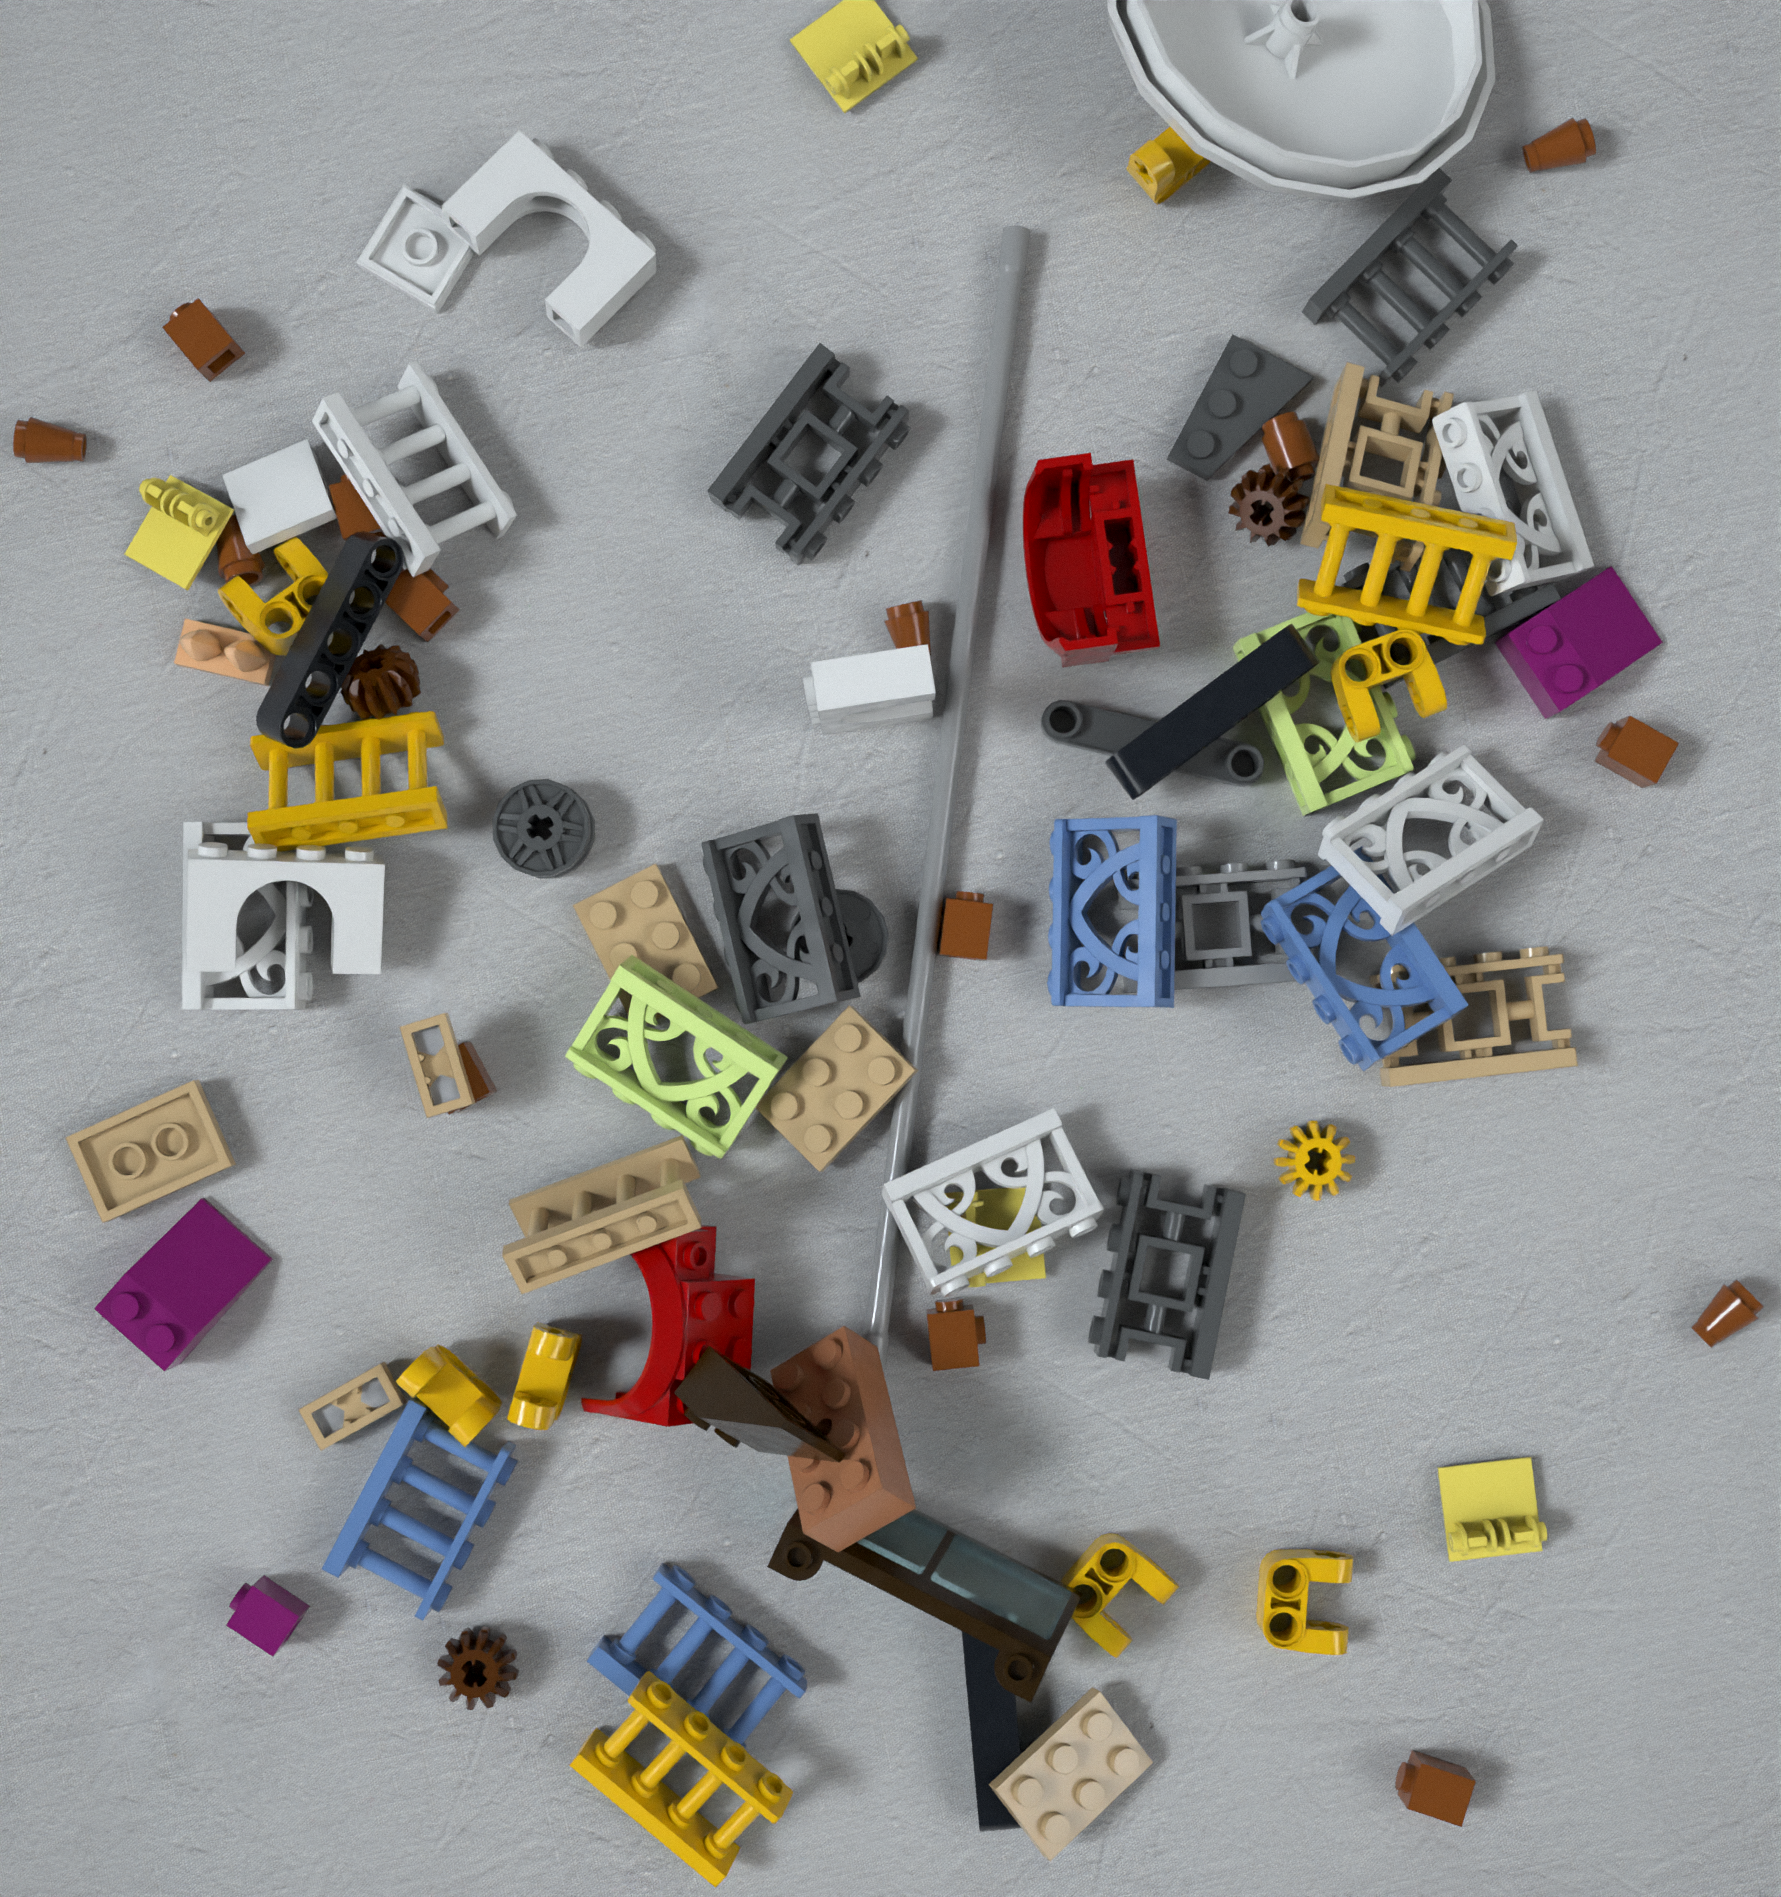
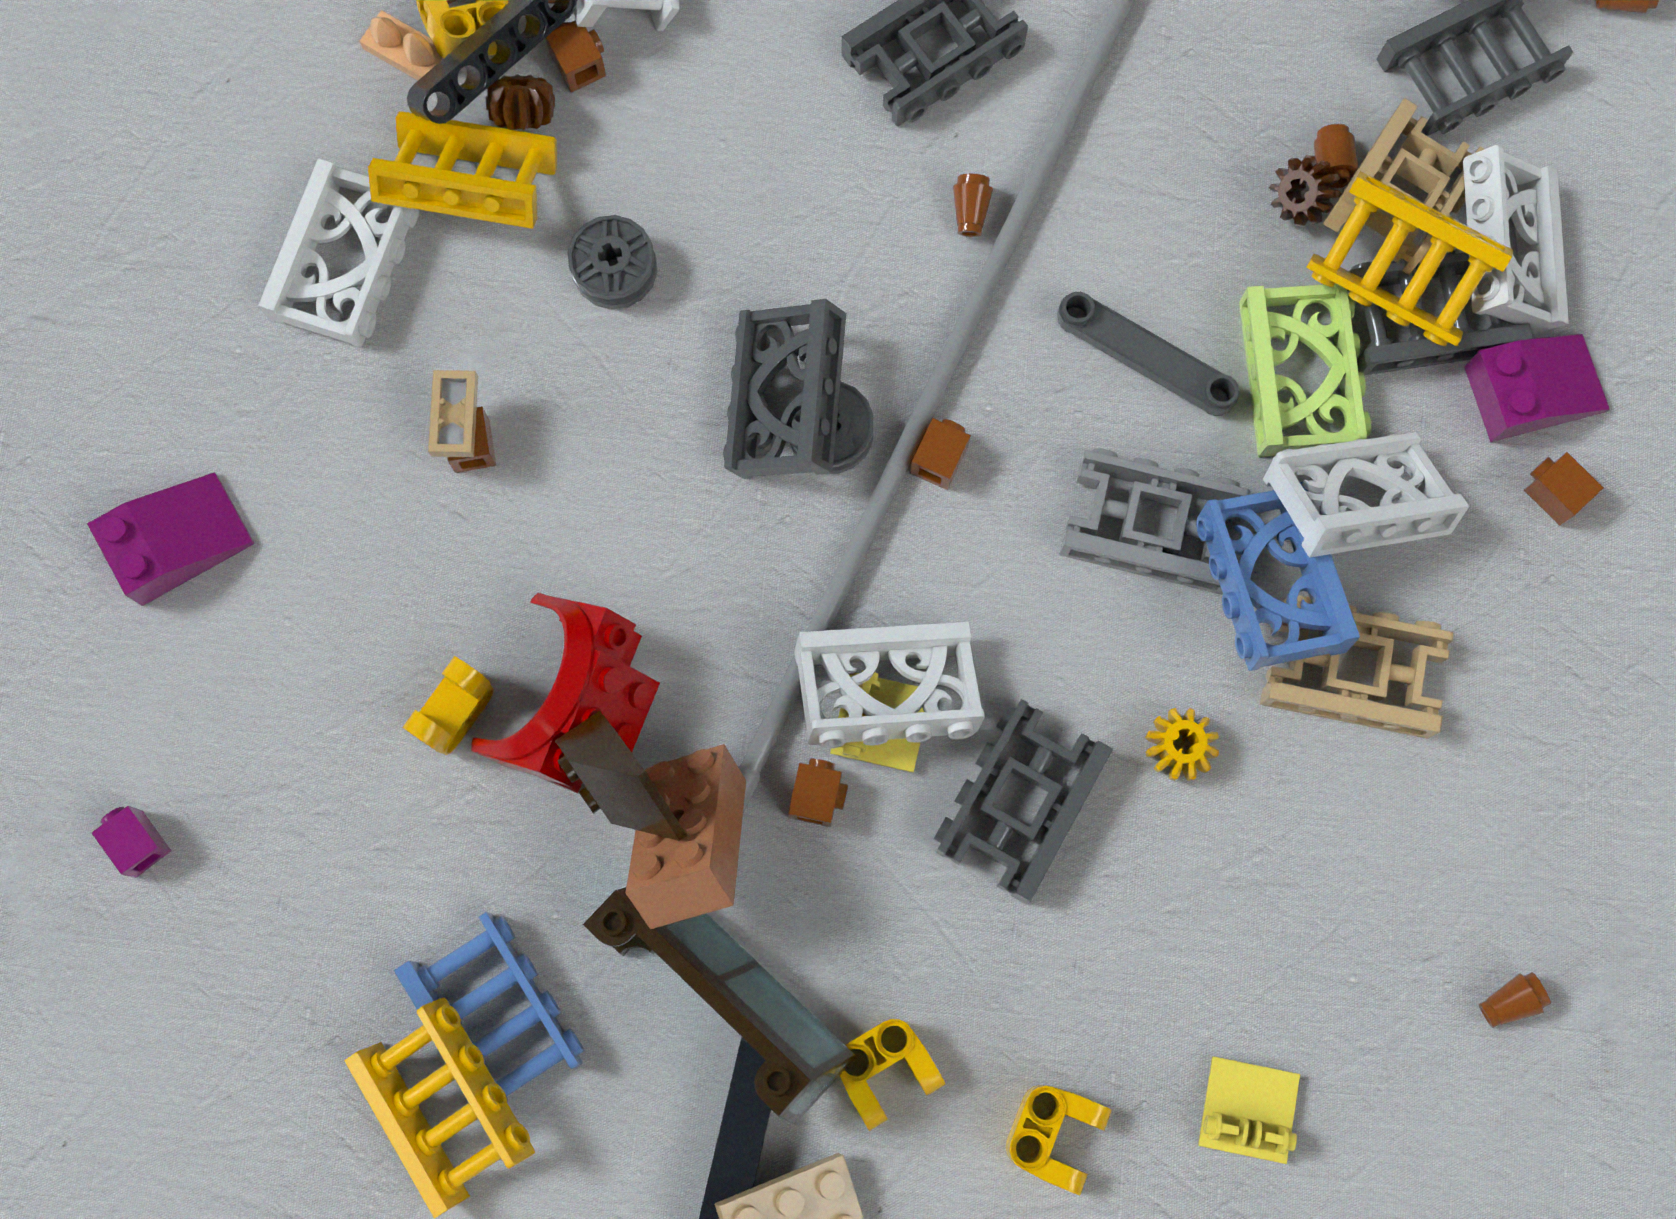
camera: 15 degrees right, 10 degrees down
(150, 1151) = (187, 418): tan plate -> none
(224, 878) = (330, 205): white arch -> none
(352, 1406) = (274, 685): tan piece -> none
(376, 1509) = (258, 778): medium blue fence -> none
(451, 1392) = (360, 695): yellow piece -> none
(489, 1682) = (282, 944): reddish brown gear -> none
(603, 1214) = (547, 581): tan fence -> none
(645, 922) = (664, 386): tan plate -> none
(739, 1047) = (712, 491): yellowish green fence -> none
(836, 1088) = (785, 550): tan plate -> none
(871, 689) = (924, 218): white arch -> none
(1087, 566) = (1138, 197): red piece -> none
(1155, 961) = (1045, 448): medium blue fence -> none
(1212, 711) = (1207, 334): black beam -> none
(1235, 403) = (1297, 111): dark grey wing -> none
(1419, 675) = (1364, 344): yellow piece -> none

